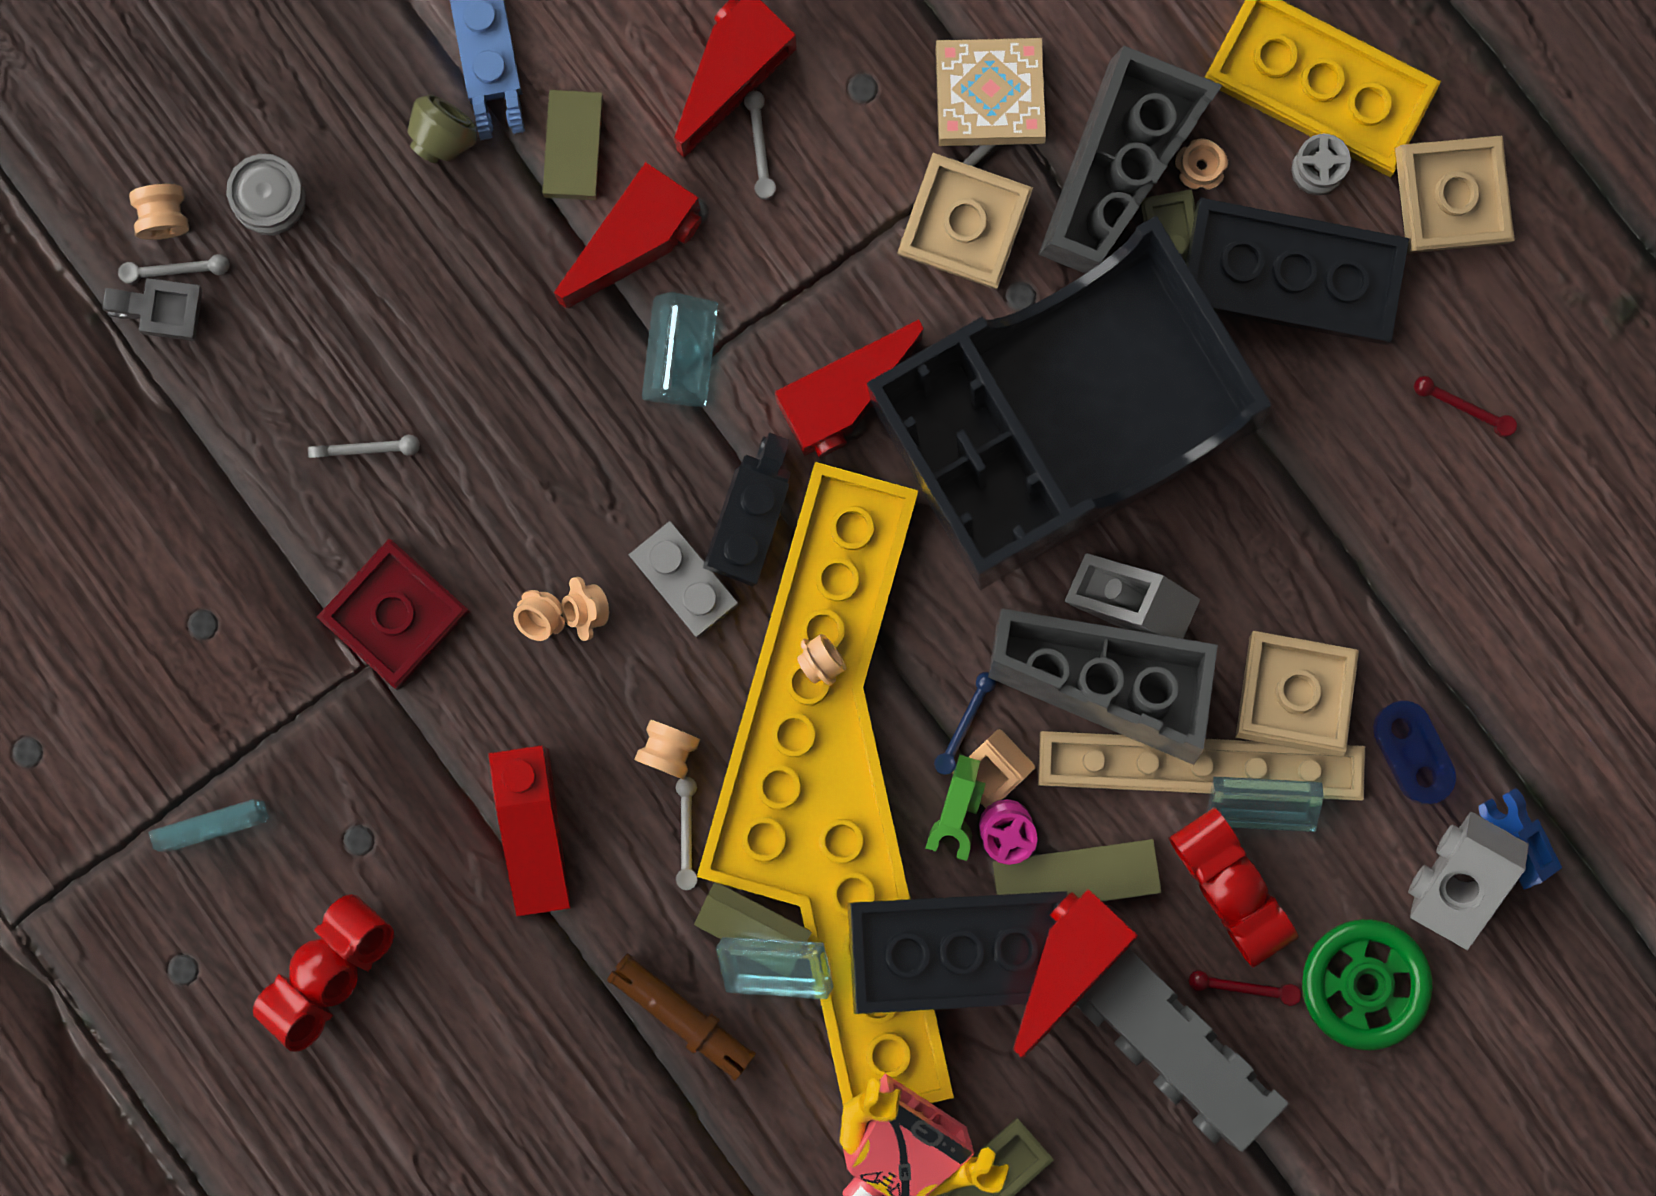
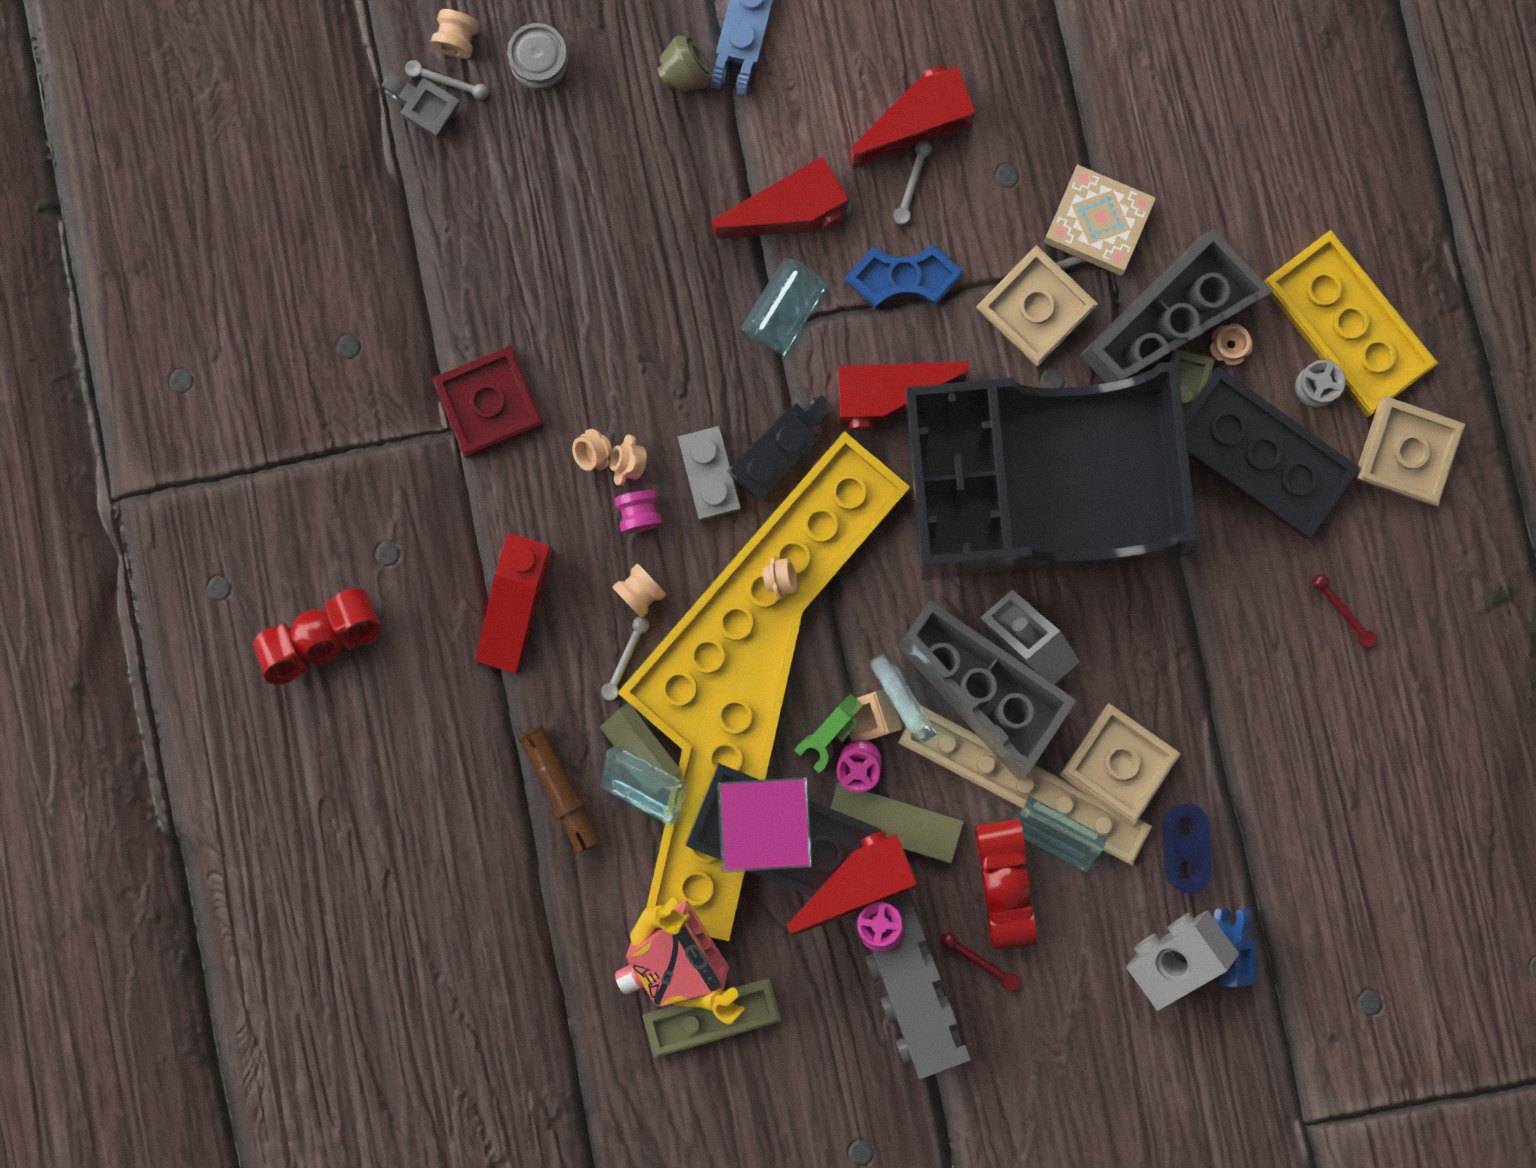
camera: 30 degrees right, 0 degrees up
(208, 826) = (284, 492): clear light blue tile -> none
(407, 445) = (555, 284): light grey hinge -> none
(573, 145) = (776, 121): olive tile -> none
(624, 660) = (638, 511): none -> dark pink wheel
(779, 265) = (884, 277): none -> blue tile
(933, 948) = (764, 824): none -> dark pink tile
(945, 762) = (838, 694): dark blue hinge -> none
(1021, 733) = (902, 698): none -> clear light blue tile
(1114, 992) = (880, 918): none -> dark pink wheel
(1404, 957) = (1046, 1028): green plate -> none

